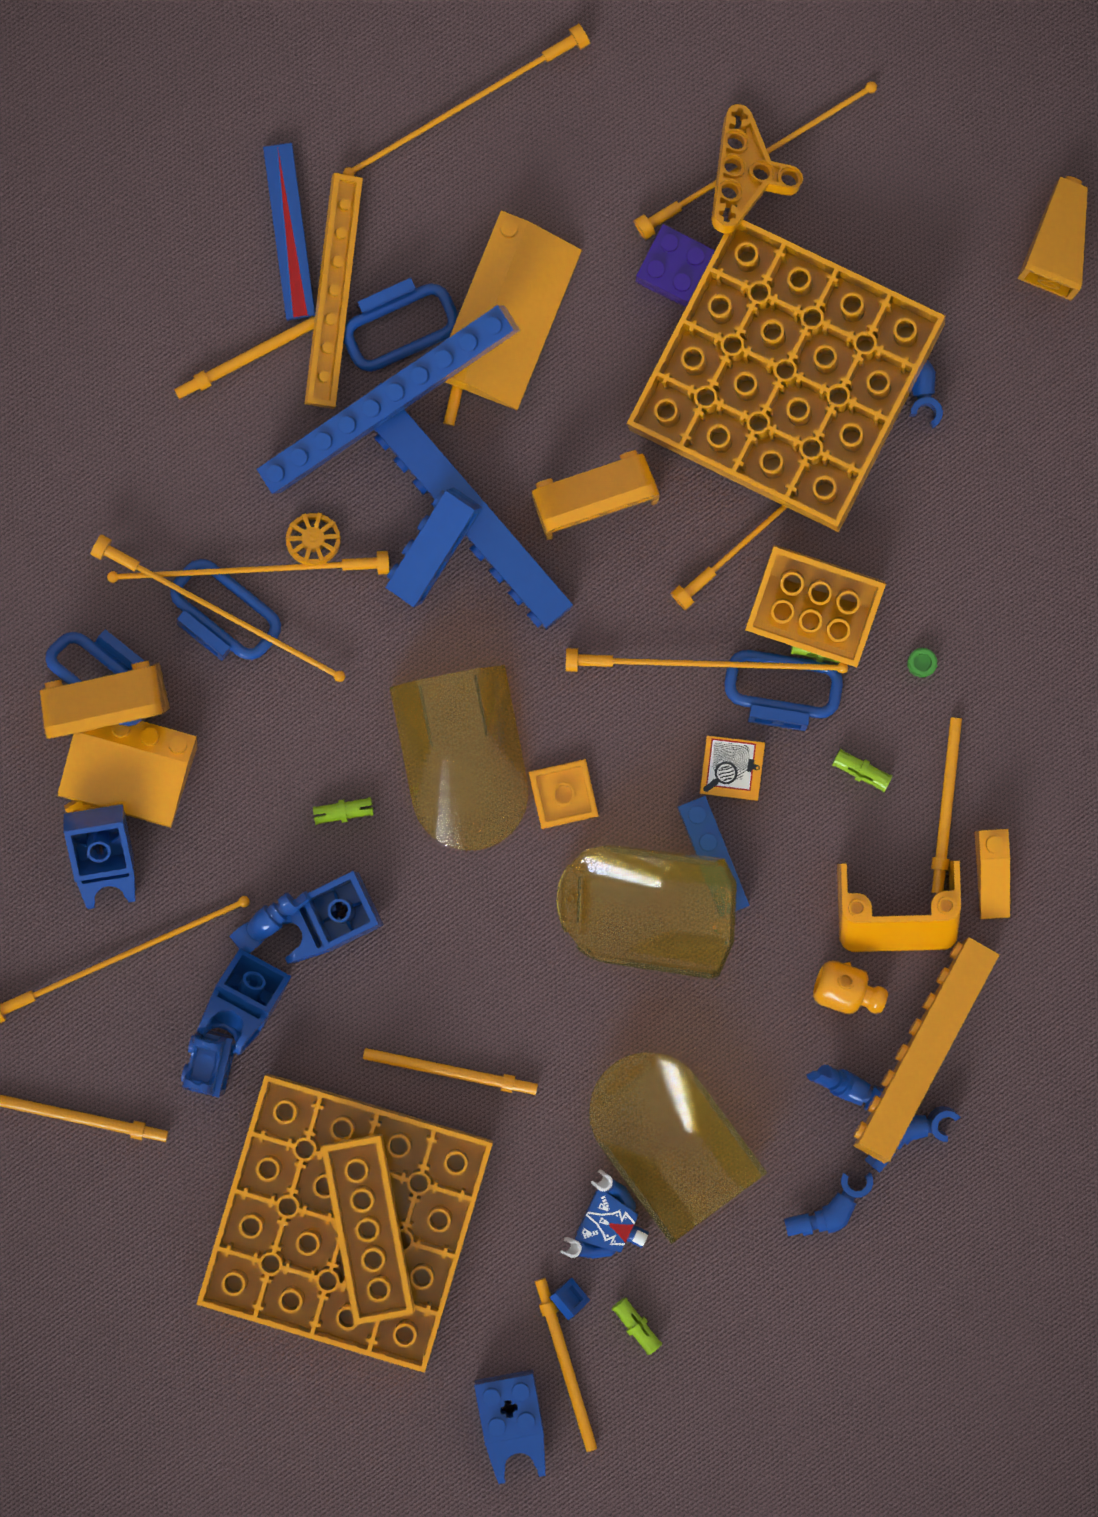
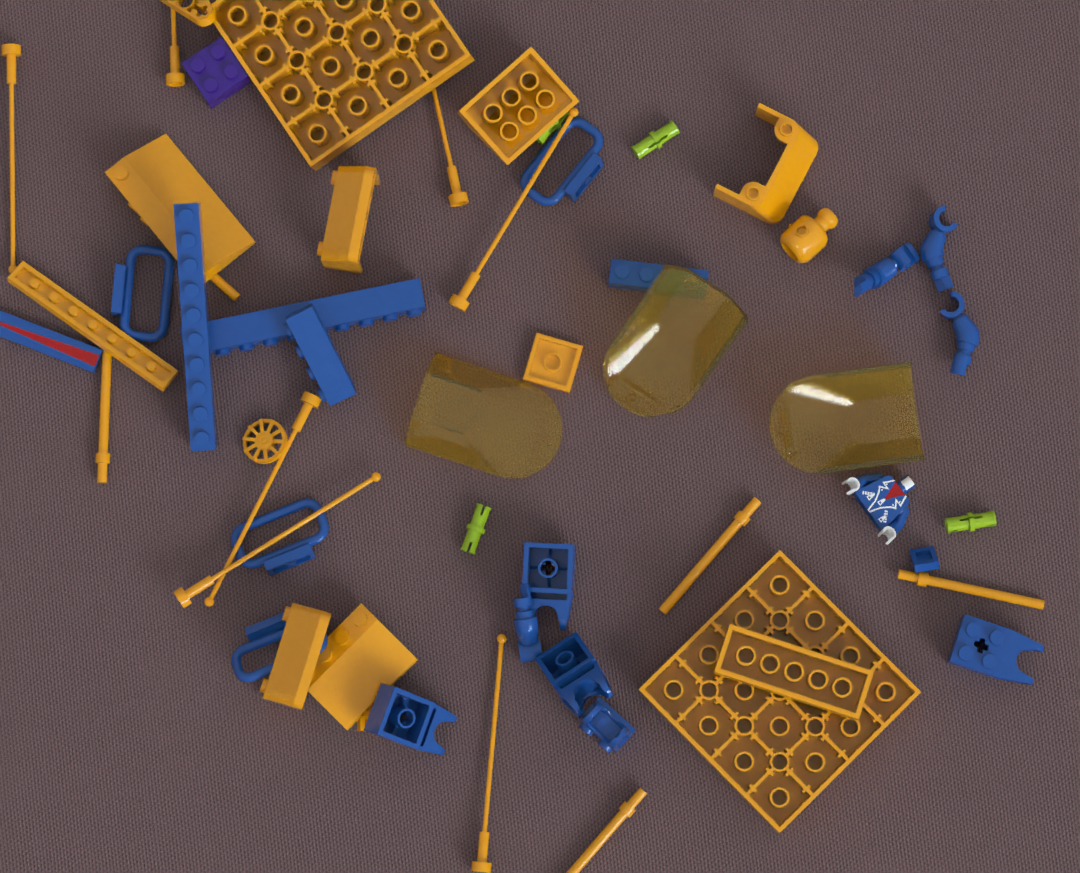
camera: 60 degrees left, 5 degrees down
(732, 768) = (602, 231): tile -> none
(922, 662) = (601, 55): bright green tile -> none
(926, 1049) = (883, 202): light orange brick -> none
(940, 862) = (753, 120): light orange bar -> none
(993, 873) = (780, 86): light orange slope -> none

